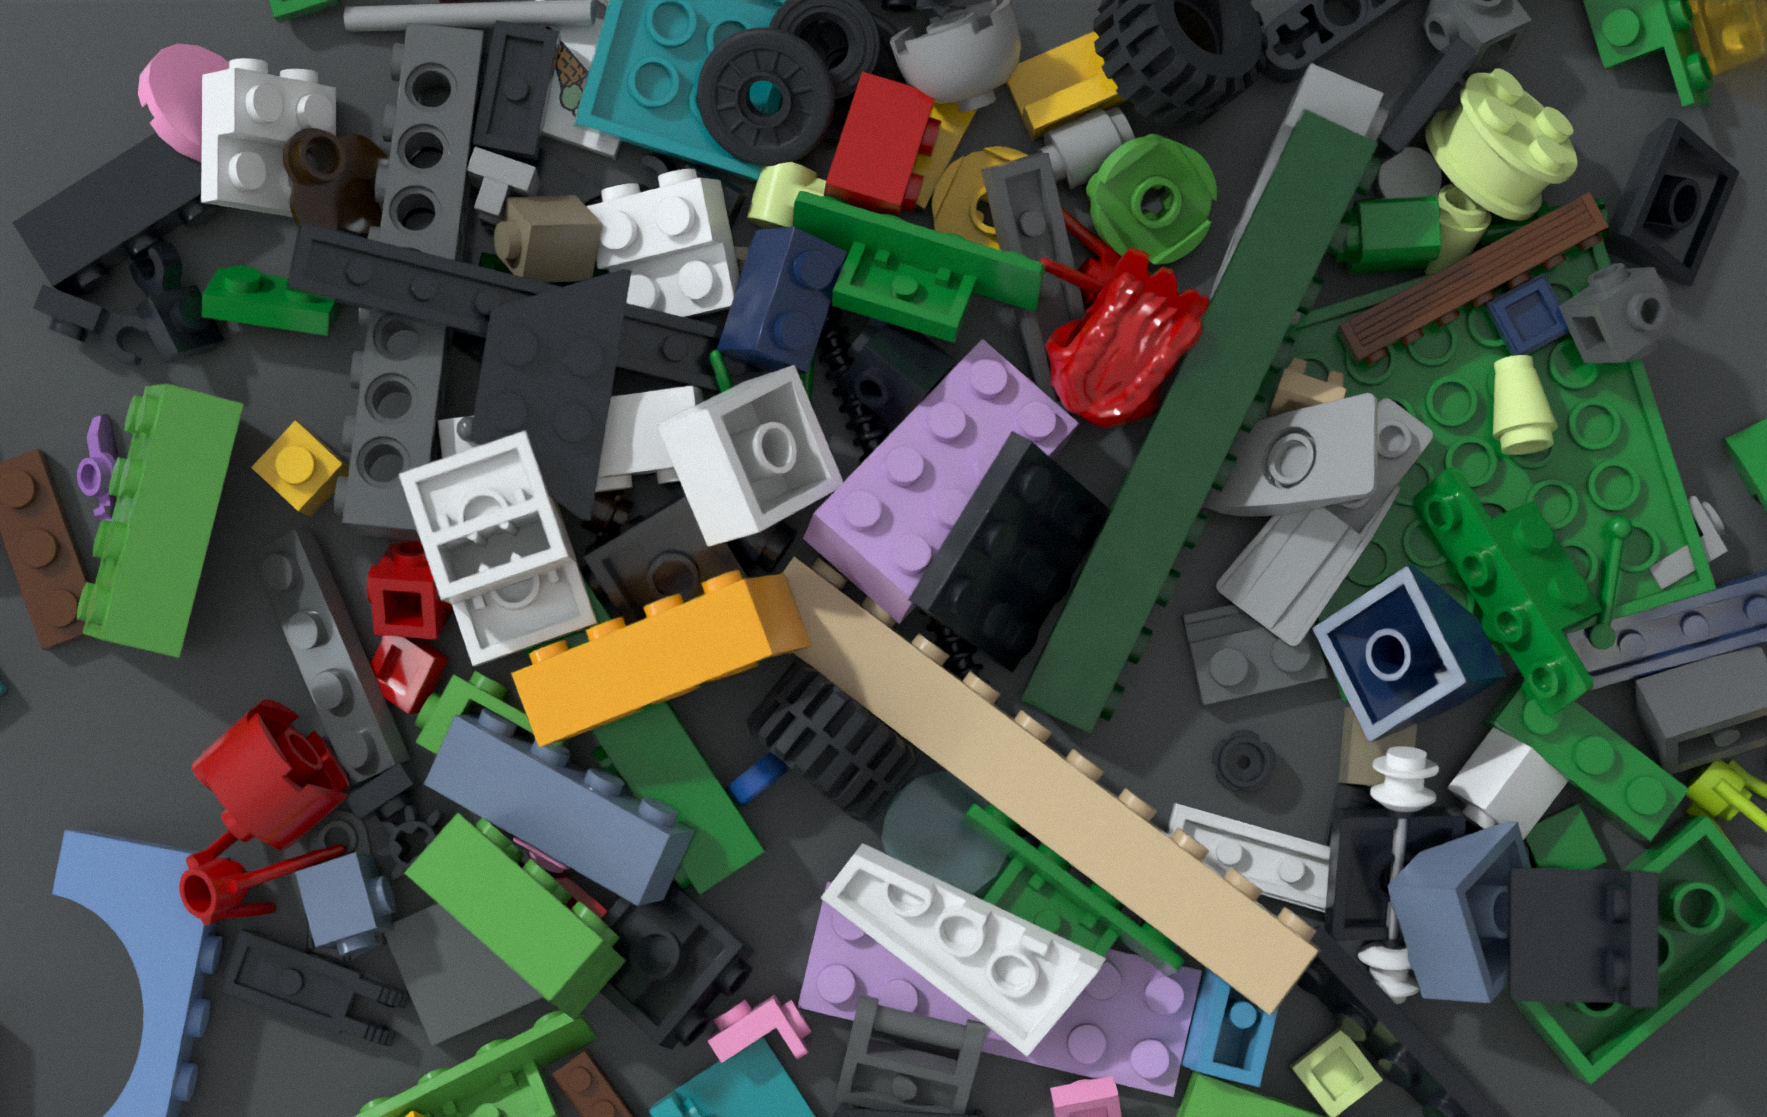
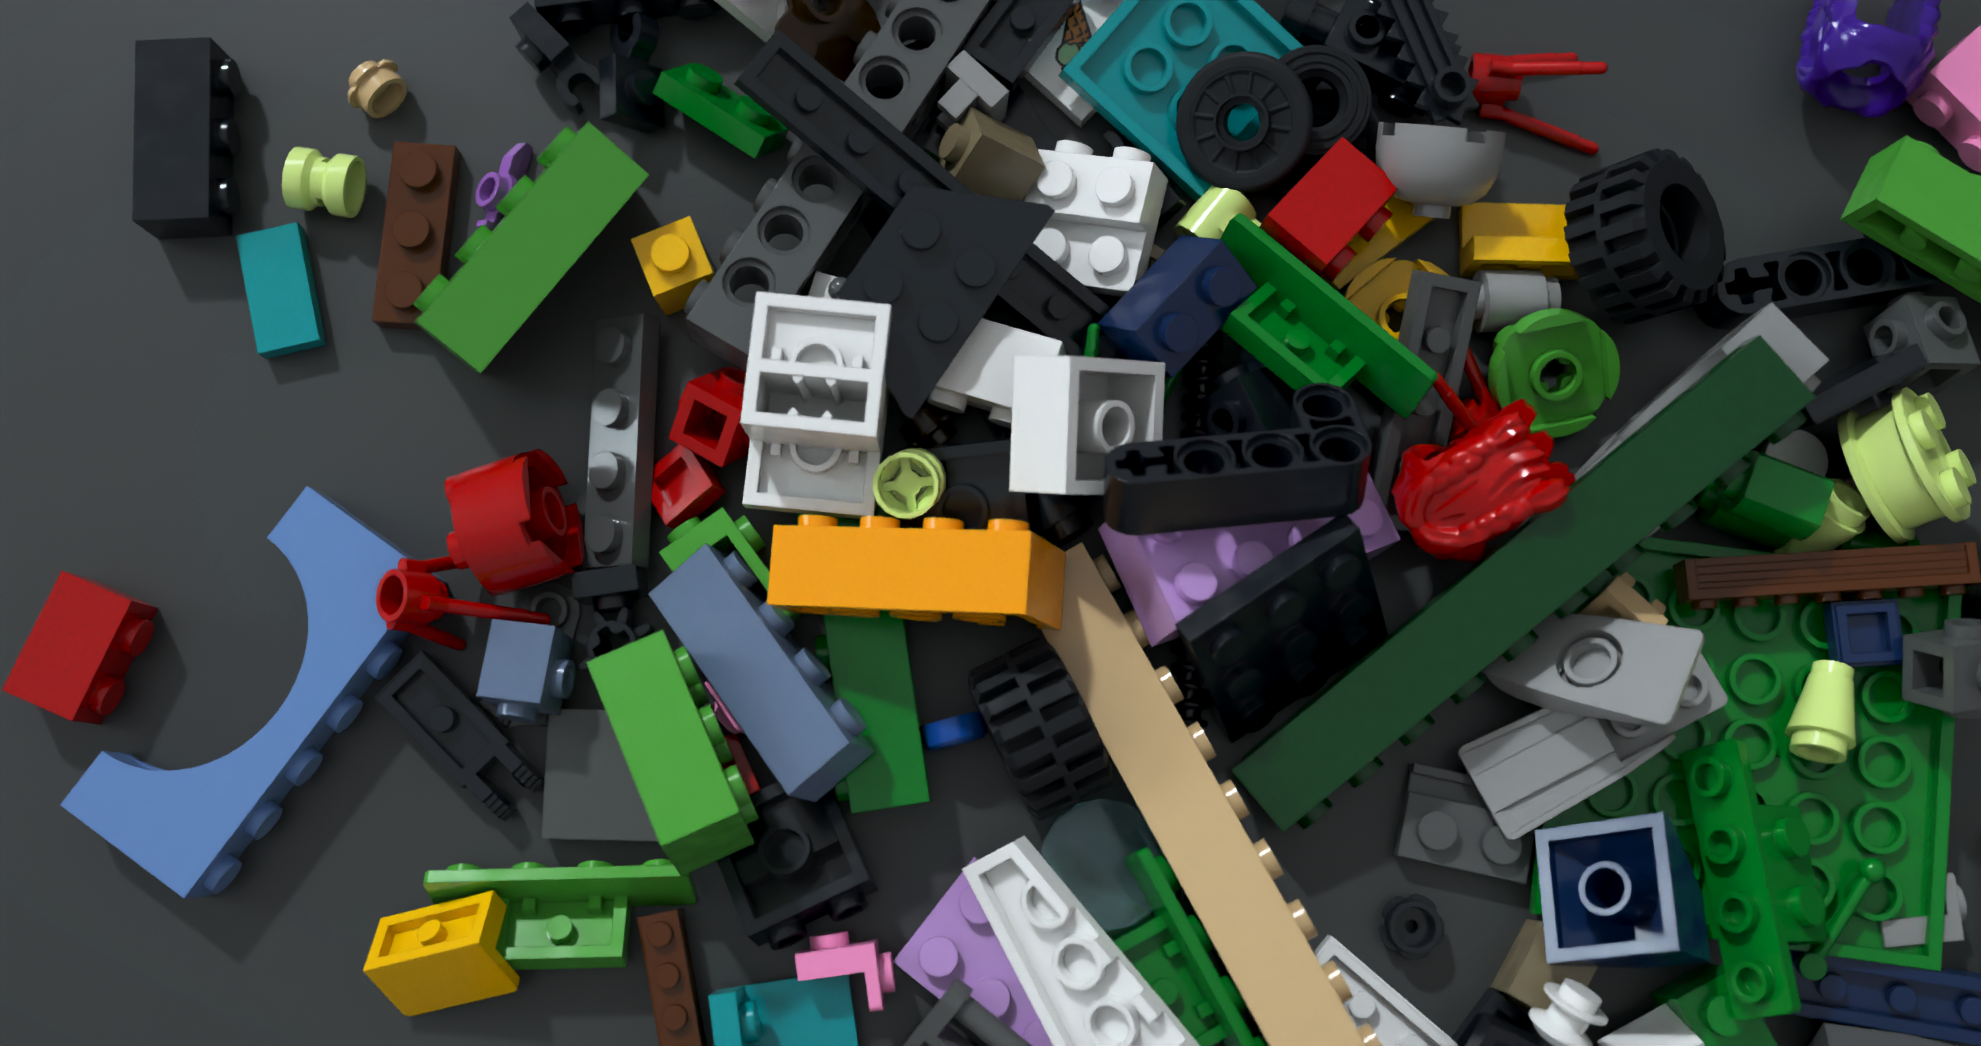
camera: 25 degrees right, 5 degrees down
(614, 589) = (898, 485): none -> yellowish green wheel
(912, 440) = (1244, 477): none -> black beam

